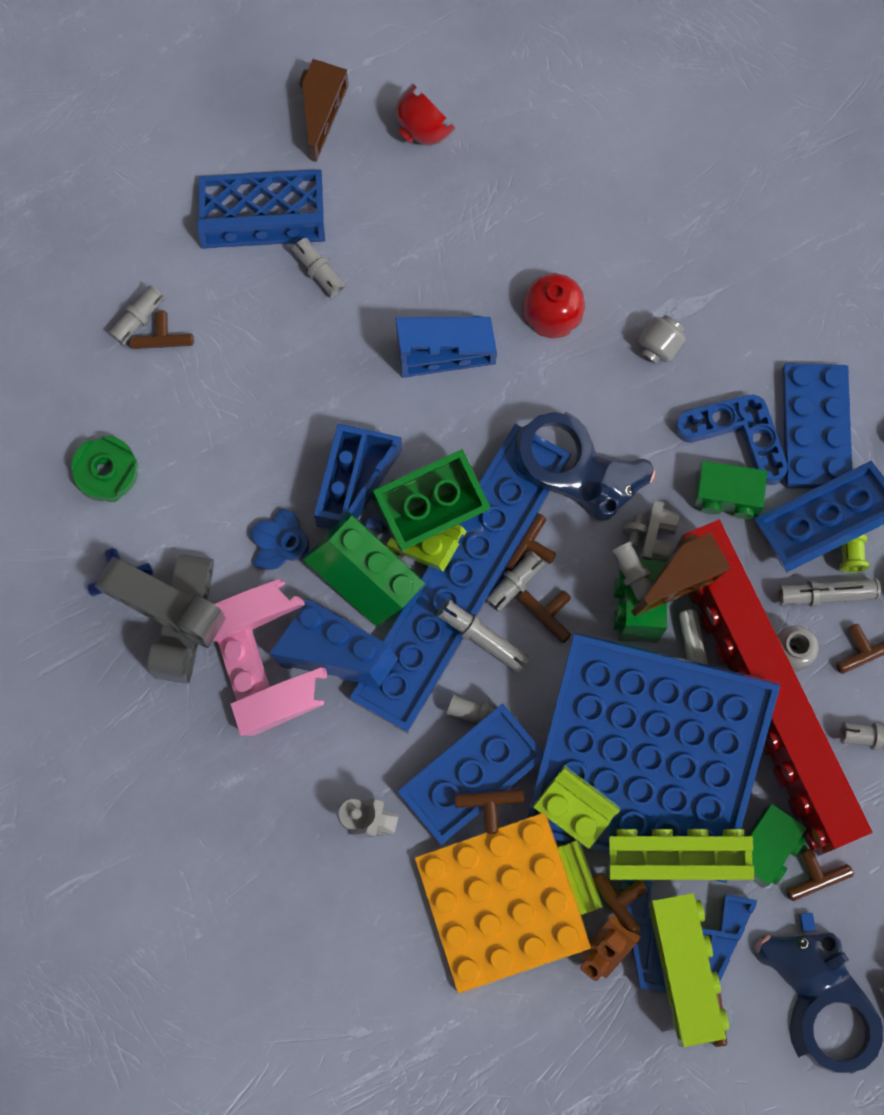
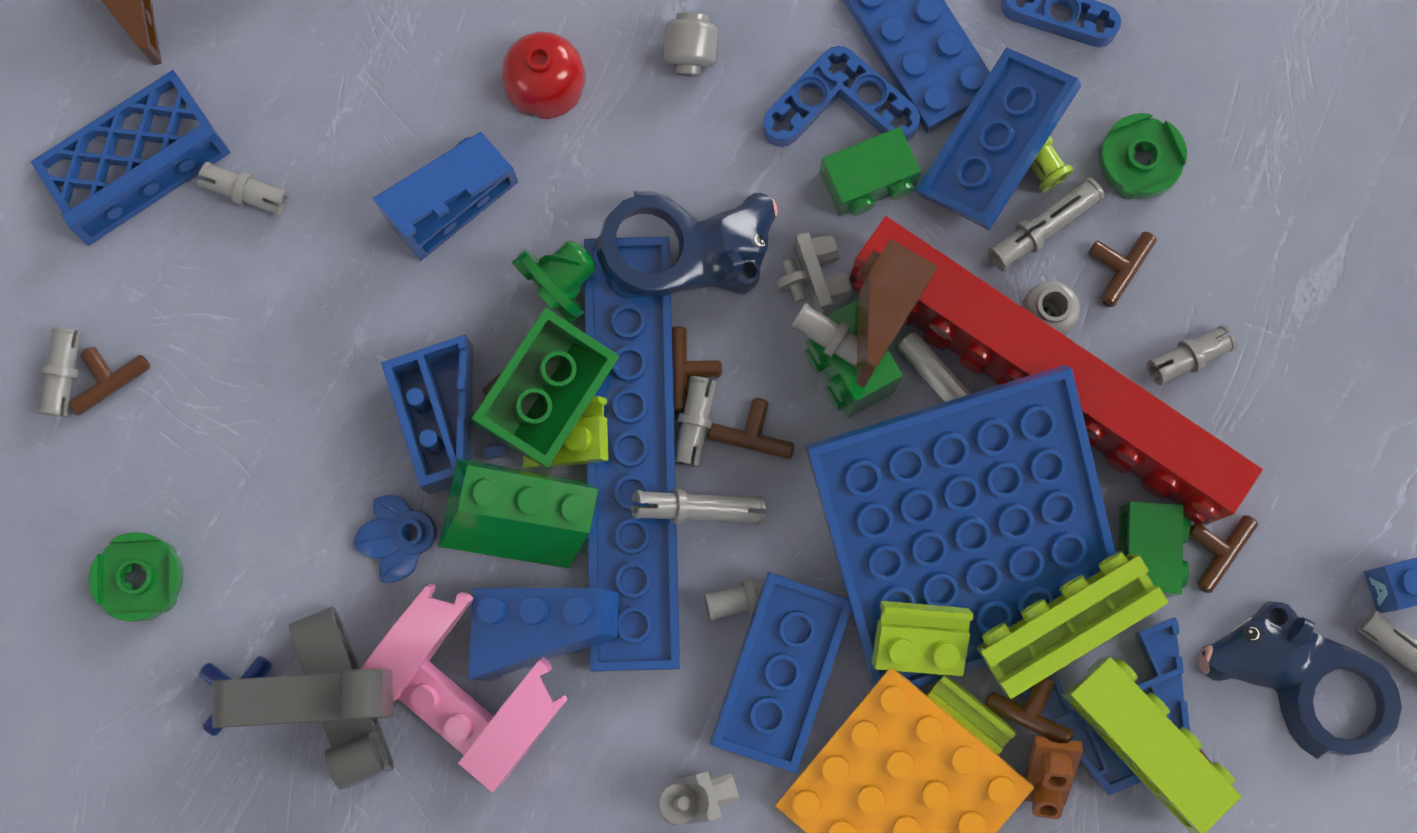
camera: 30 degrees left, 5 degrees up
(483, 436) = (559, 276): none -> green plate
(489, 801) = (821, 692): reddish brown piece -> none
(807, 922) = (1239, 605): blue piece -> none

